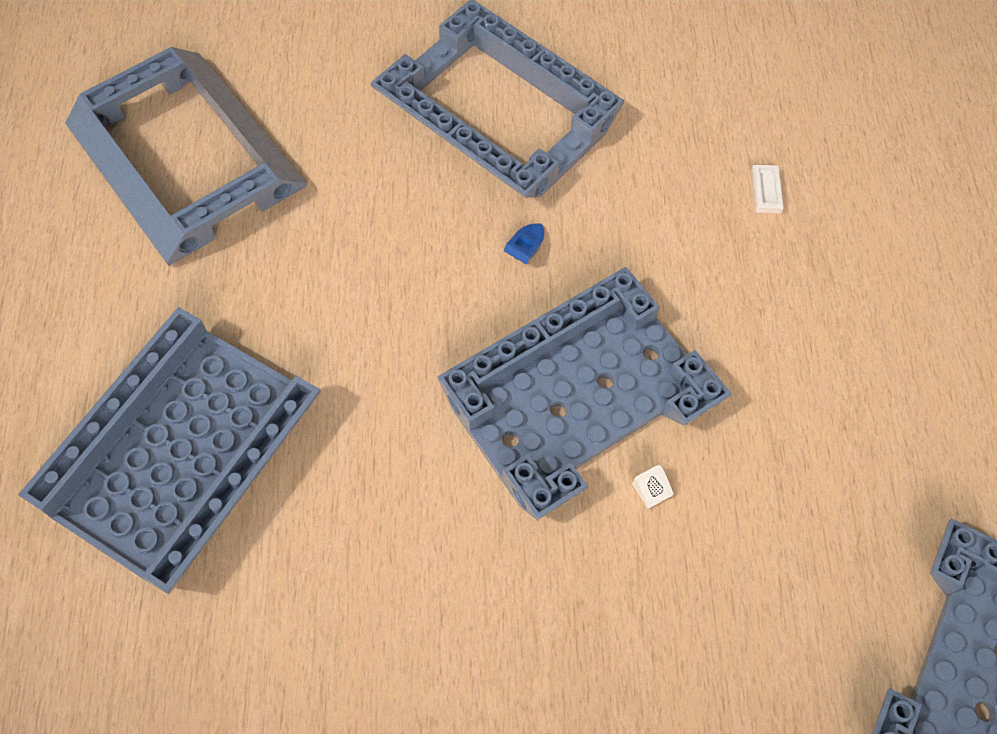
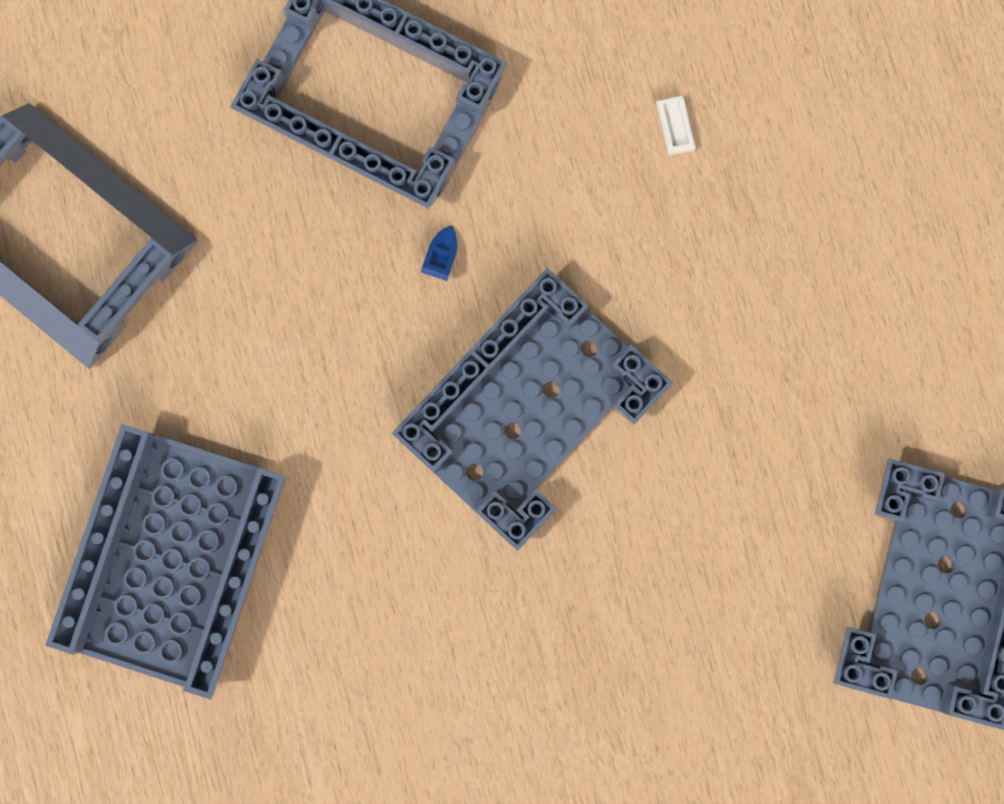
camera: 10 degrees left, 20 degrees up
(653, 486) = (616, 486): white slope -> none

